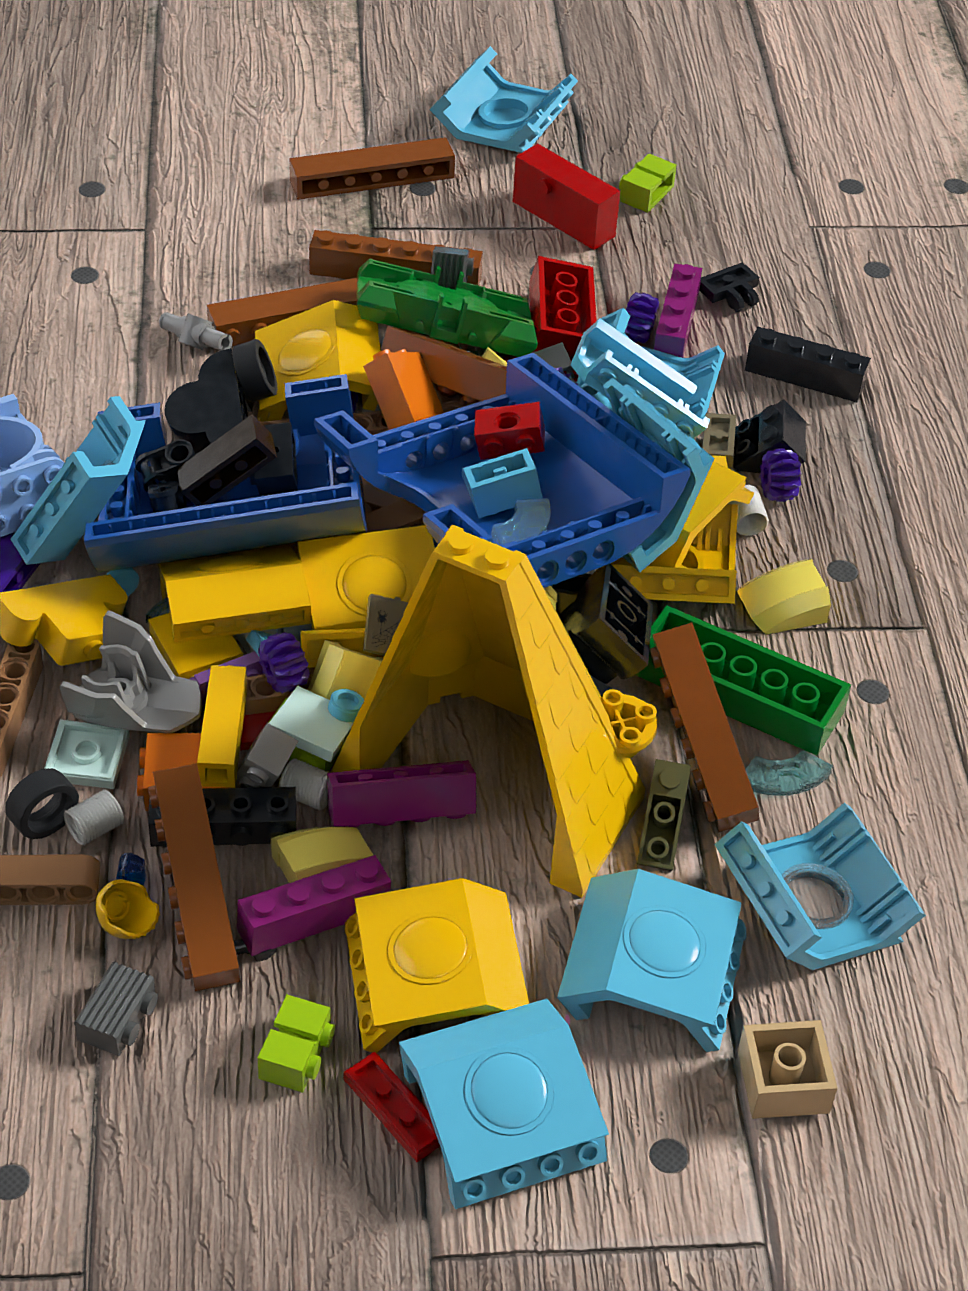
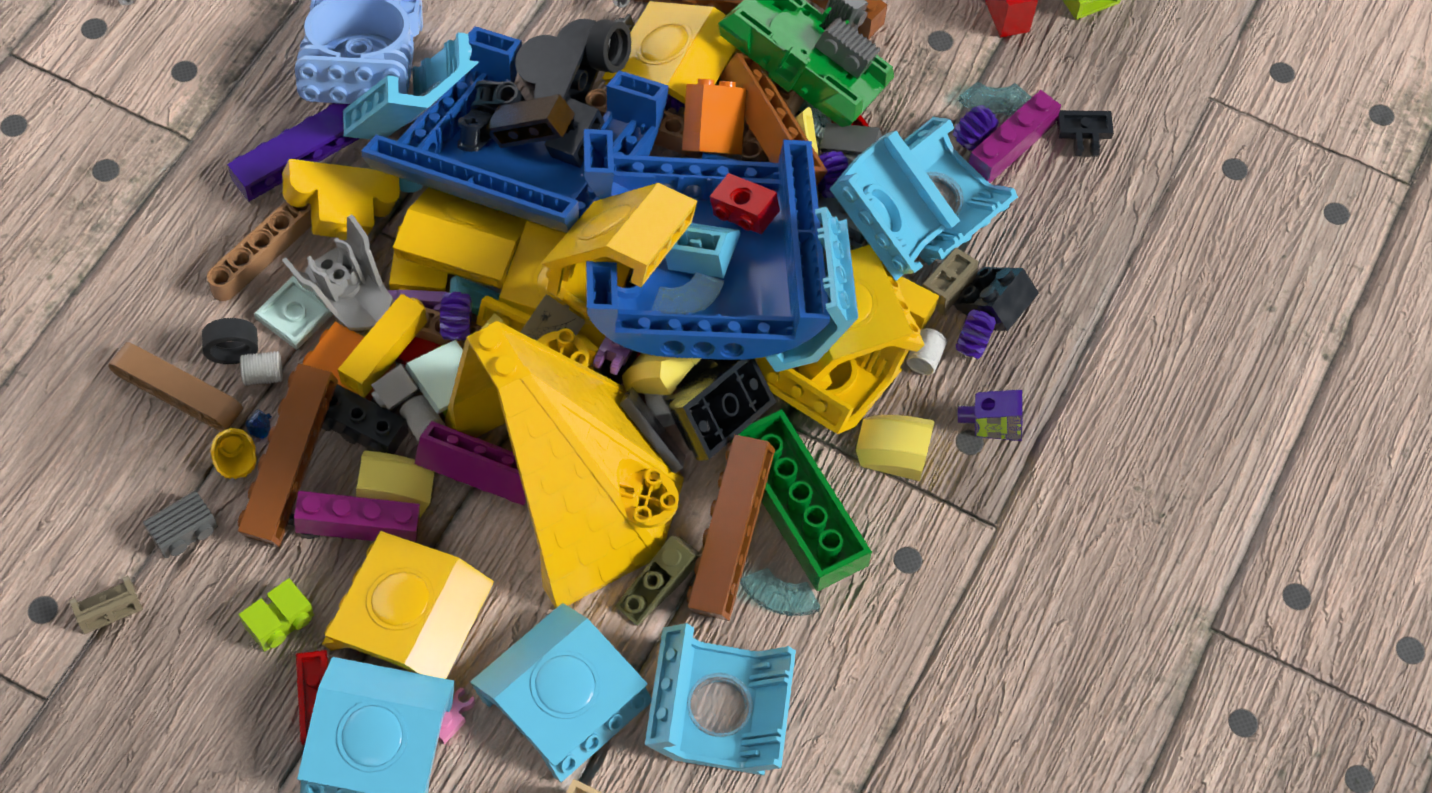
camera: 30 degrees right, 15 degrees up
(89, 1134) = (106, 606): none -> dark tan hinge
(384, 586) = (571, 300): none -> yellow bar
(433, 467) = (627, 227): none -> yellow panel
(484, 288) = (847, 48): none -> dark grey brick
(561, 302) = (916, 88): red brick -> none
(618, 297) = (998, 100): none -> clear light blue tile
(807, 364) = (1086, 238): black brick -> none
(856, 529) = (995, 414): none -> dark purple torso

